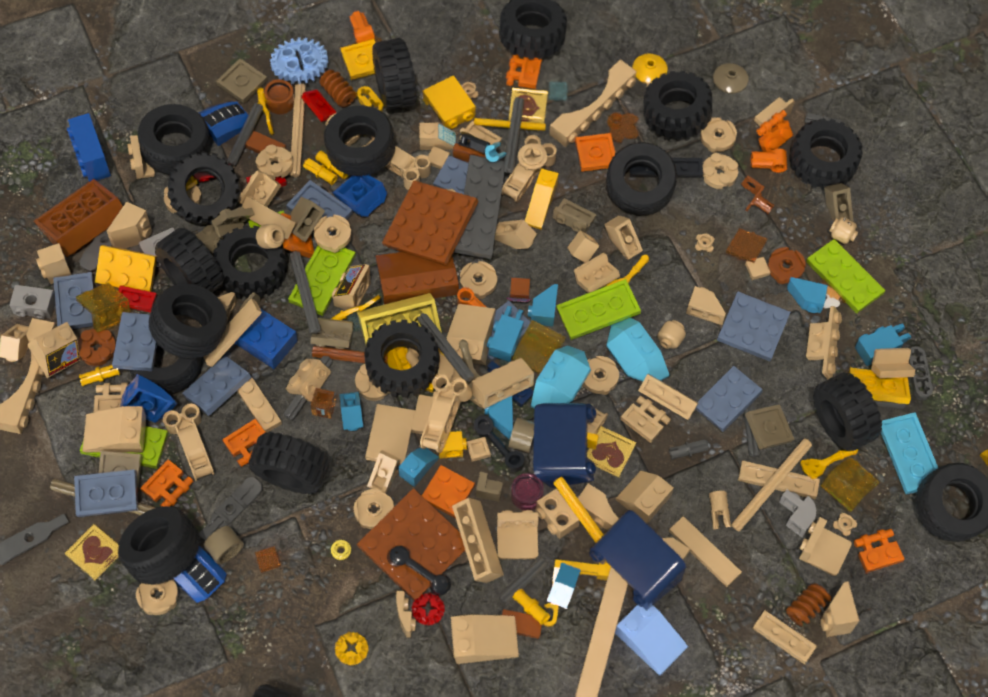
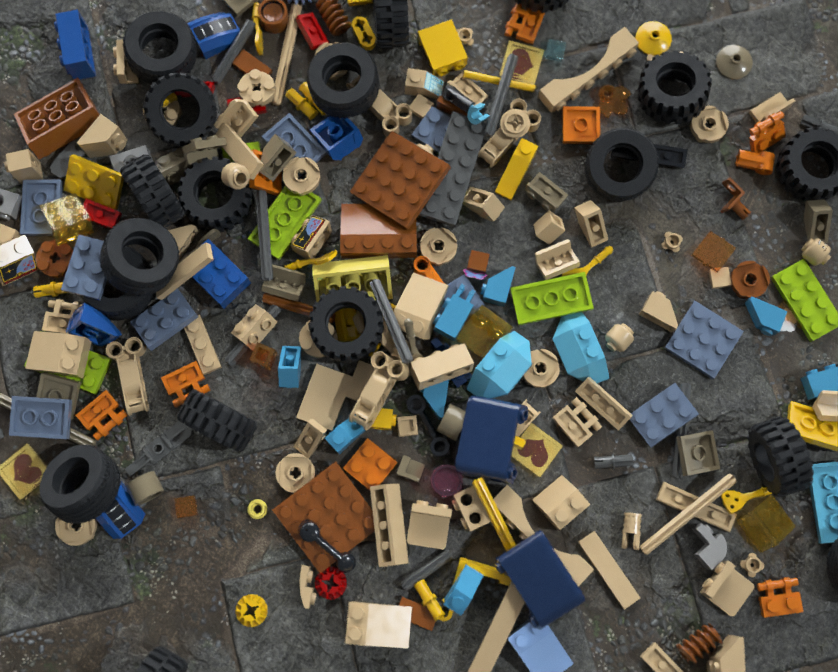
camera: 10 degrees right, 15 degrees up
(722, 162) = (712, 161): tan plate -> none
(823, 342) = (770, 368): tan bracket -> none

